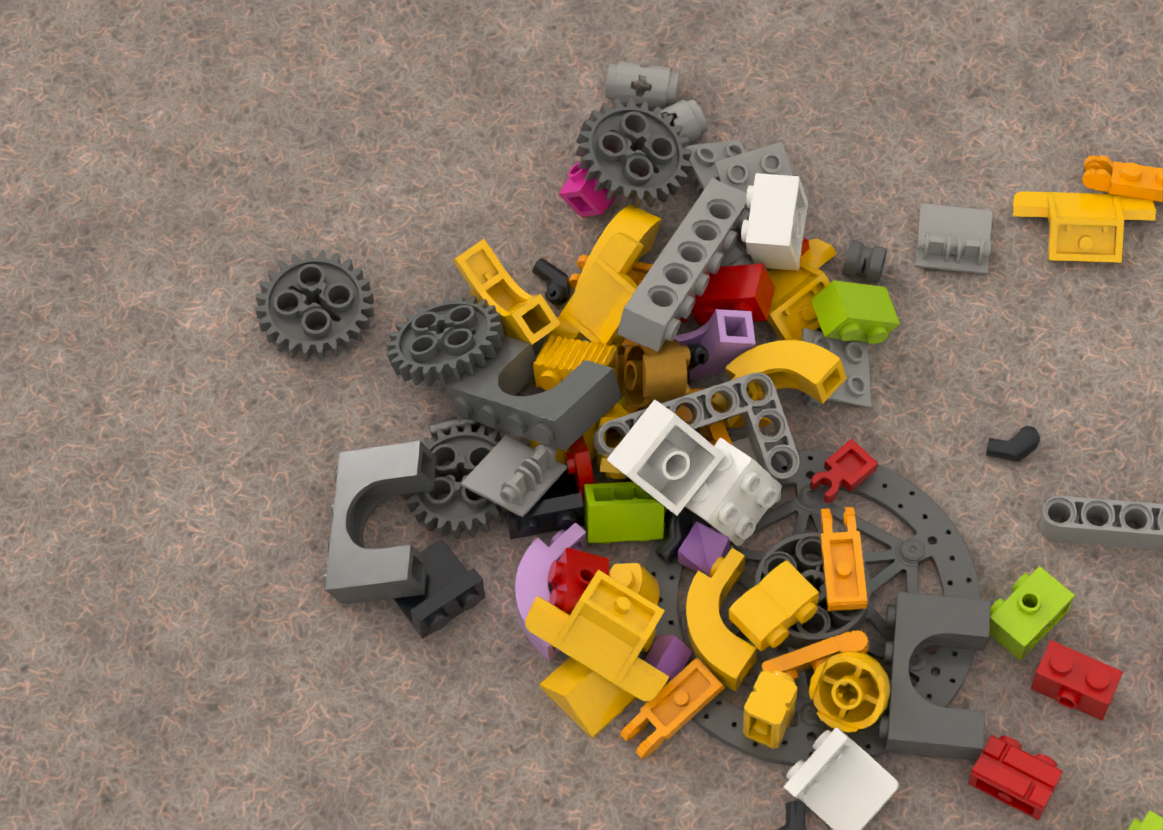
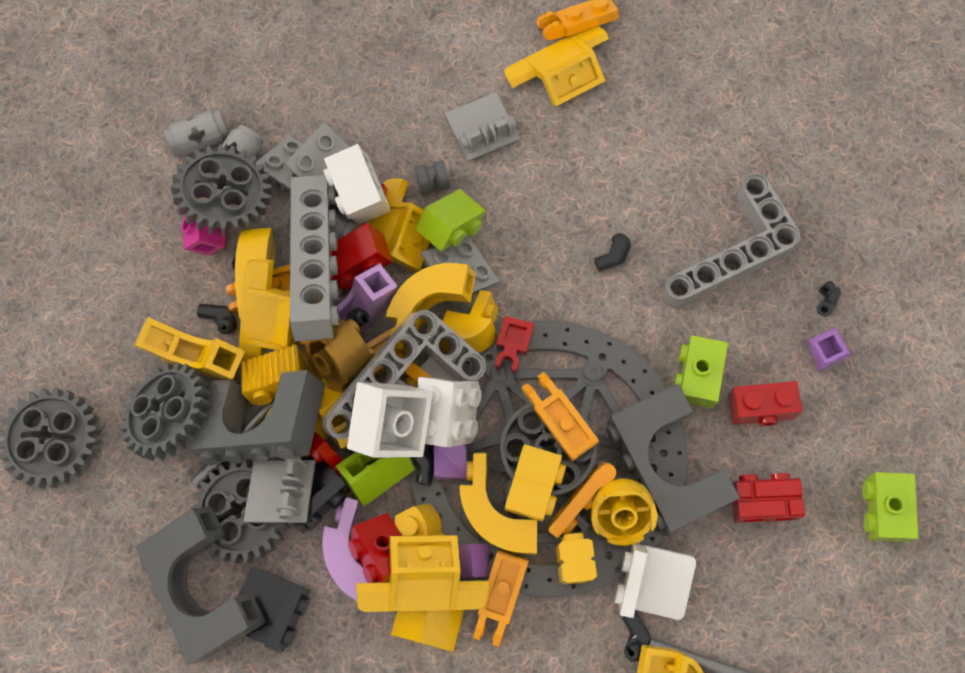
camera: 30 degrees left, 10 degrees up
(816, 433) = (474, 328): none -> yellow brick

